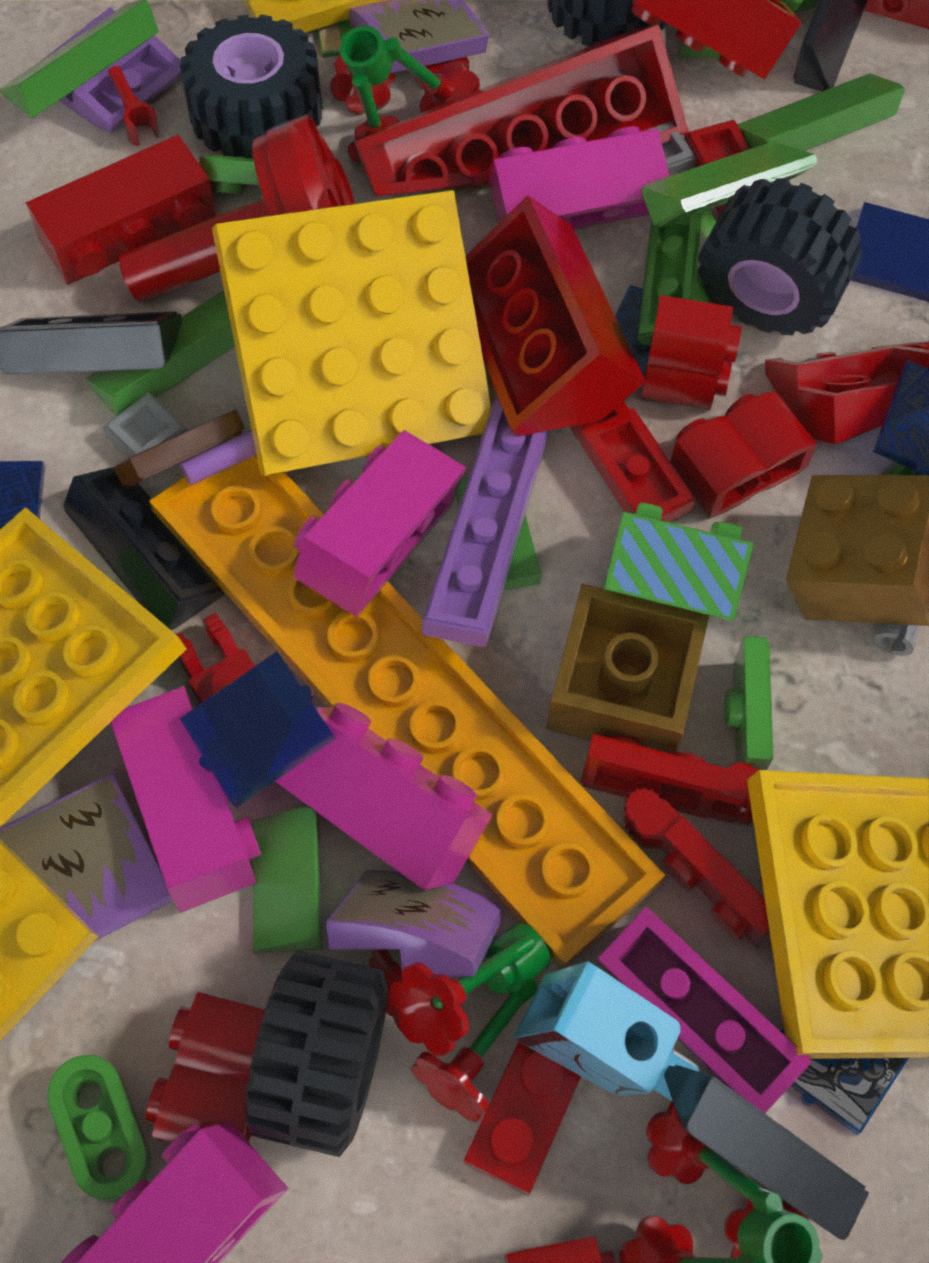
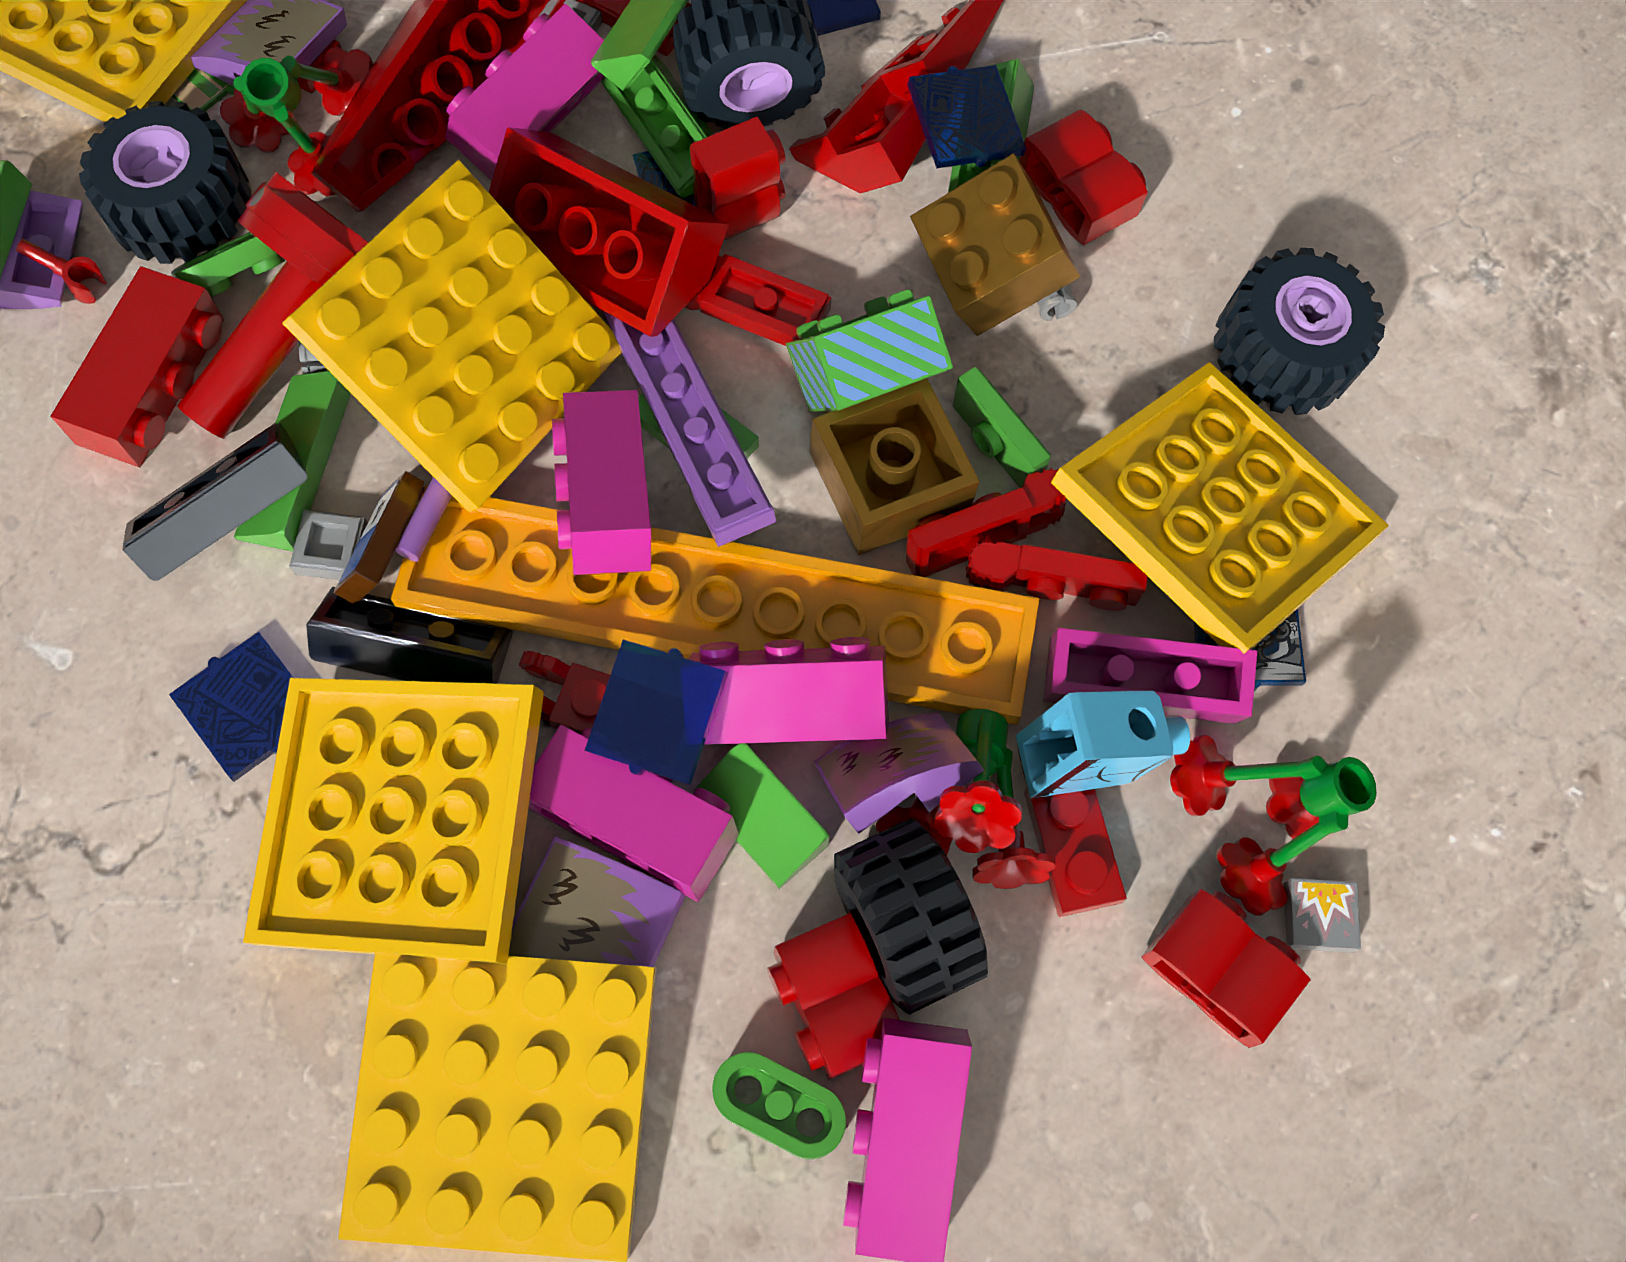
camera: 40 degrees left, 5 degrees up
(741, 452) = (834, 233): red brick -> none
(765, 1150) = (1269, 734): black slope -> none

